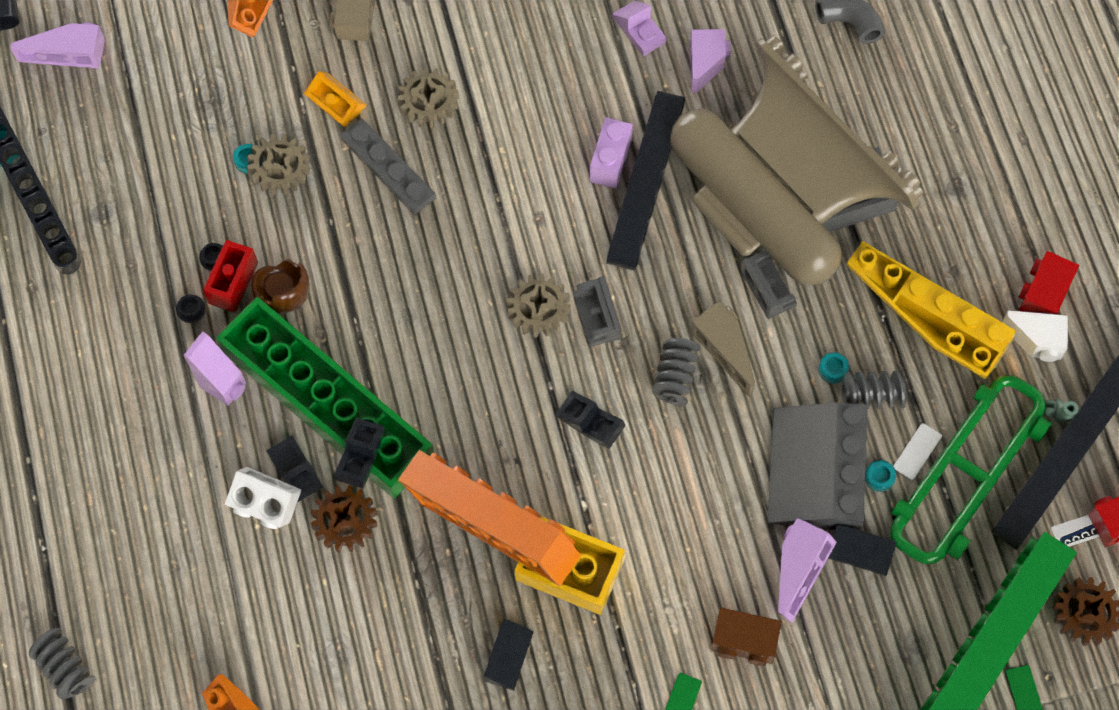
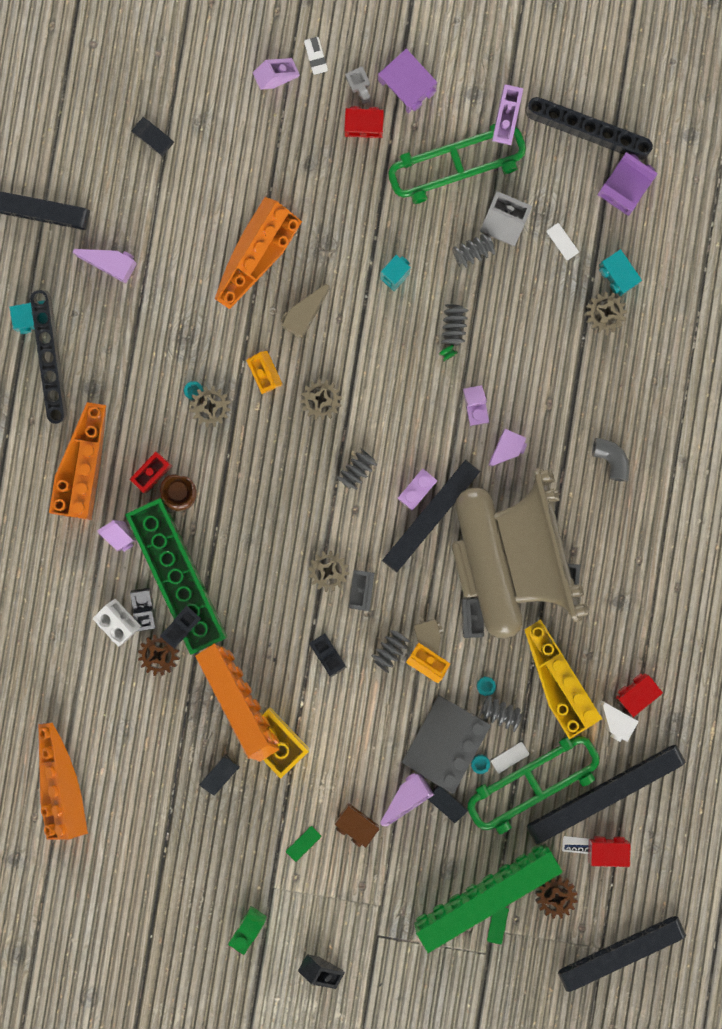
camera: 20 degrees right, 20 degrees up
(125, 314) = (79, 469): none -> orange wedge
(190, 308) = (120, 479): black plate -> none
(209, 255) = (146, 449): black plate -> none
(388, 166) = (277, 434): dark grey plate -> none
(517, 161) = (357, 470): none -> dark grey piece
(737, 360) = (428, 663): none -> light orange slope
(1060, 410) = (605, 774): sand green arm -> none

